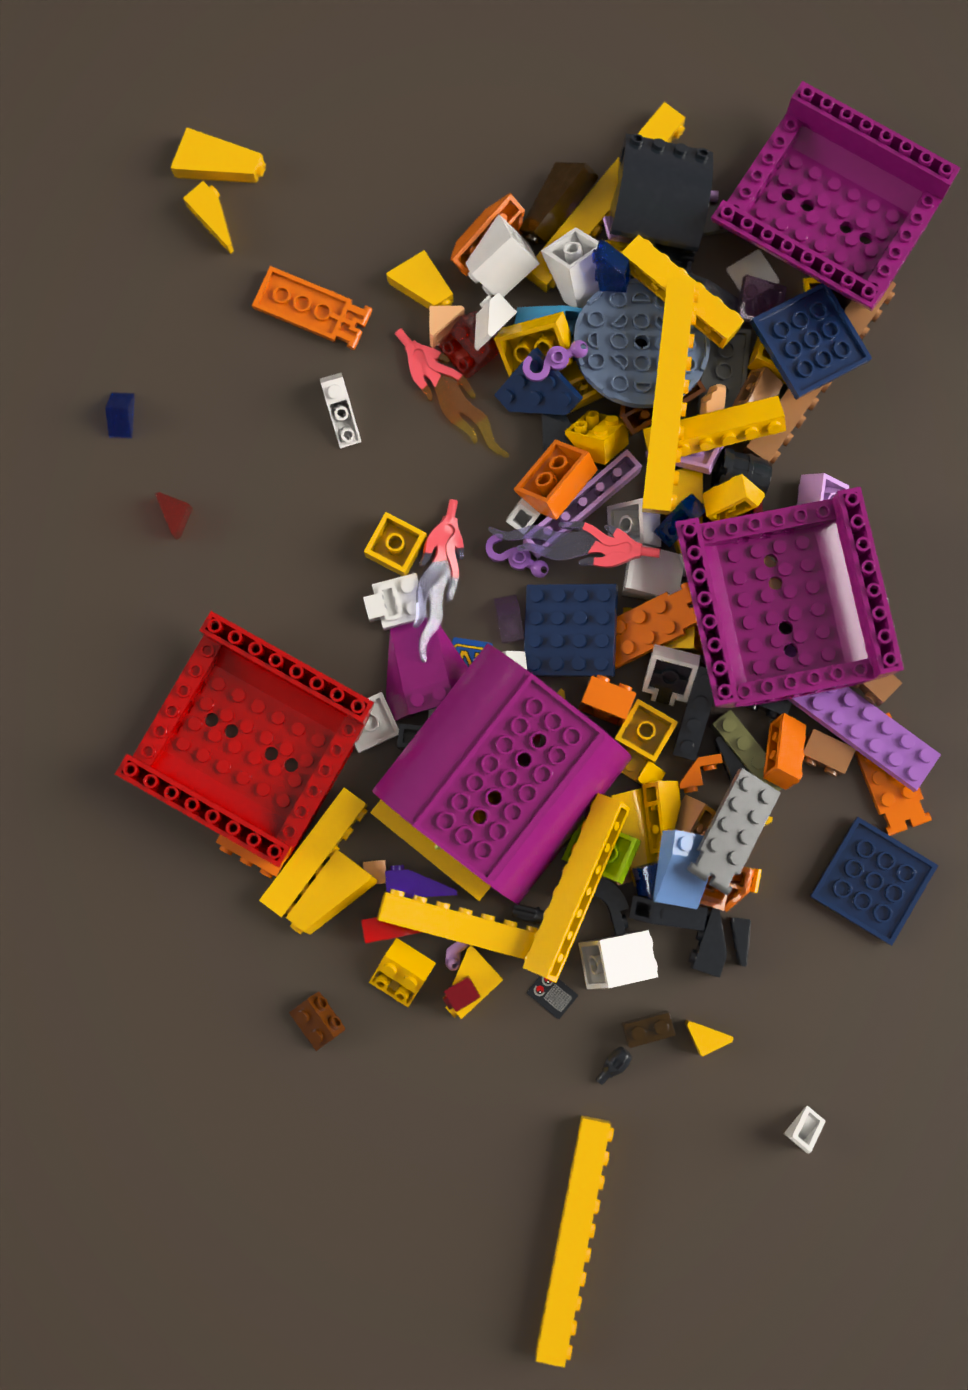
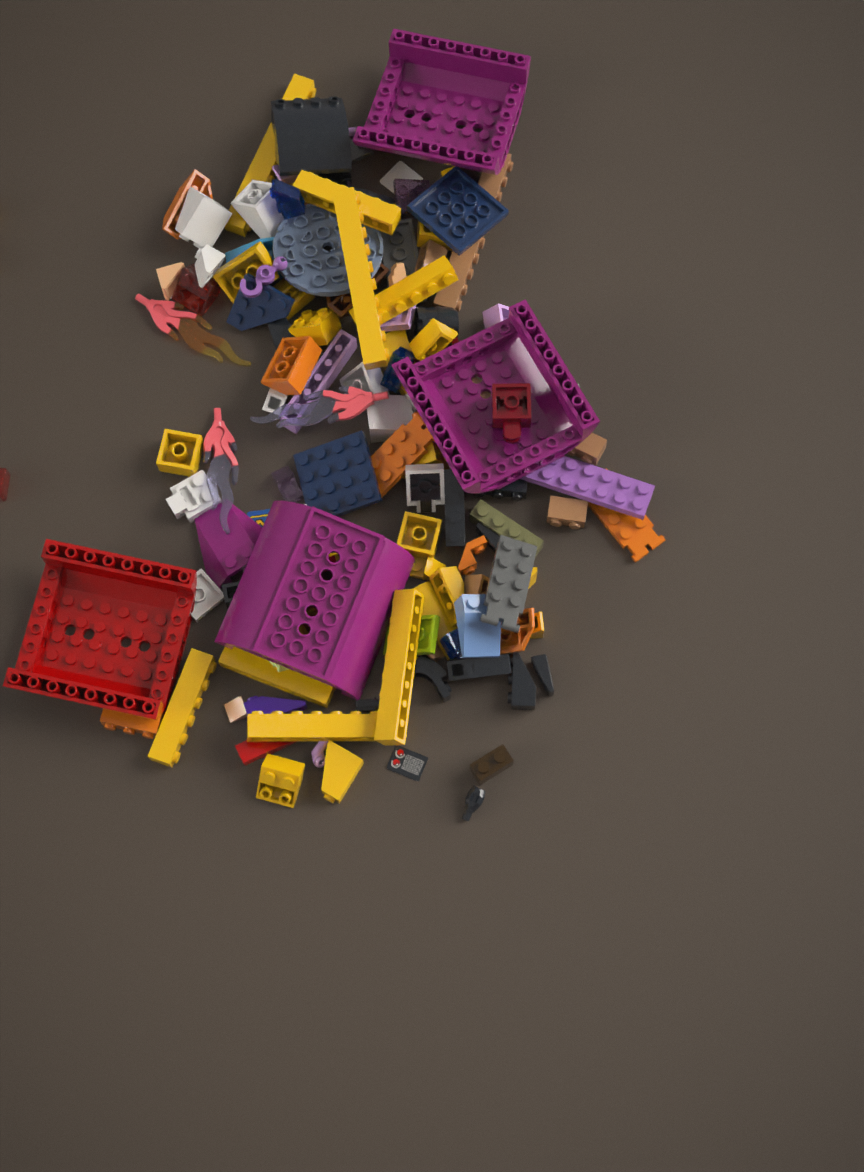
camera: 15 degrees left, 10 degrees down
(311, 307) = (63, 297): orange hinge -> none
(317, 1020) = (222, 839): reddish brown bracket -> none
(330, 892) = (204, 734): yellow slope -> none
(340, 410) = (108, 366): white slope -> none
(421, 281) = (143, 254): yellow slope -> none
(461, 994) = (331, 778): dark red brick -> none
(517, 559) = (280, 437): medium lavender piece -> none
(557, 200) = (233, 165): dark brown slope -> none
(572, 1241) = (481, 951): yellow brick -> none
(607, 700) = (381, 516): orange brick -> none
(618, 960) = (450, 717): white slope -> none
(706, 1039) = (540, 758): yellow slope -> none
(785, 751) = (532, 517): orange brick -> none
(801, 617) = (511, 409): none -> dark red brick
(805, 1129) = (641, 806): white slope -> none
(873, 881) = (634, 598): dark blue plate -> none

